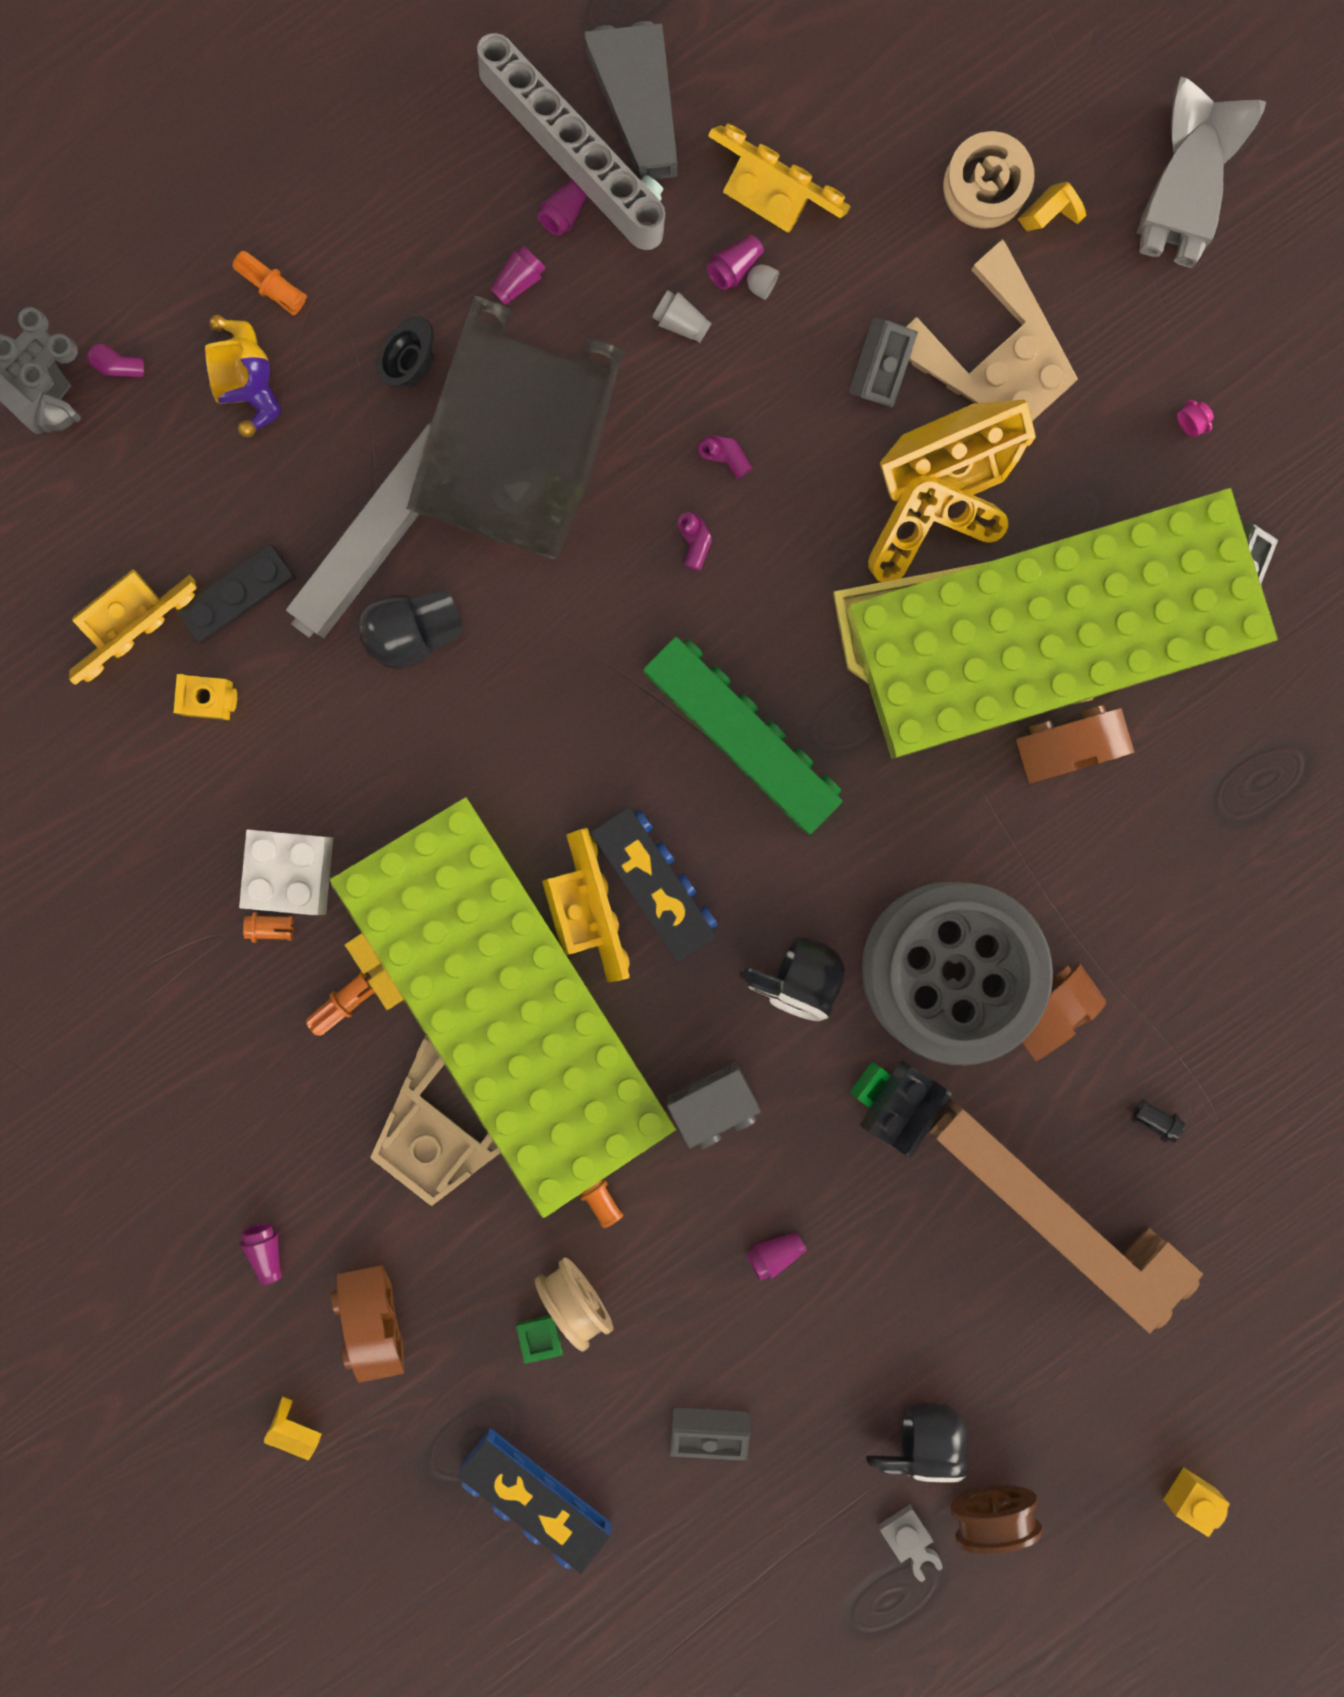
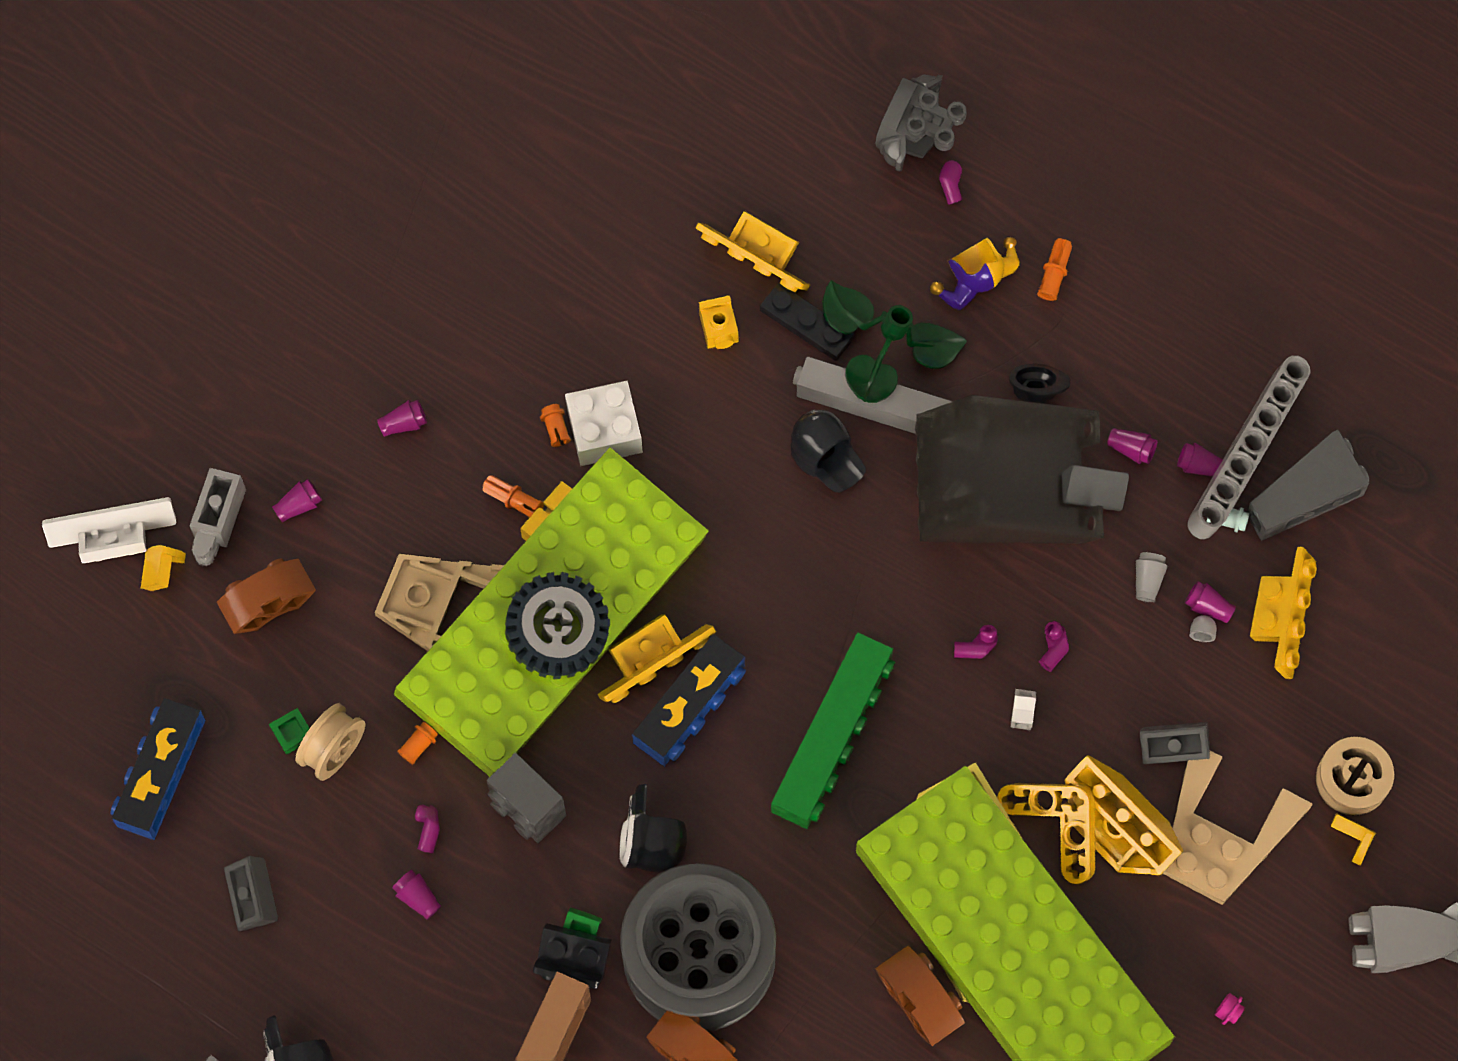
camera: 70 degrees right, 20 degrees down
(201, 1099) = (402, 419): none -> magenta cone
(229, 1478) = (111, 530): none -> white bracket
(250, 1354) = (216, 514): none -> light grey hinge
(338, 548) = (869, 378): none -> dark green plant
(557, 338) = (1094, 487): none -> dark grey slope
(570, 1027) = (558, 593): none -> wheel
(704, 1216) = (431, 827): none -> magenta arm
(786, 515) = (1023, 709): none -> white piece

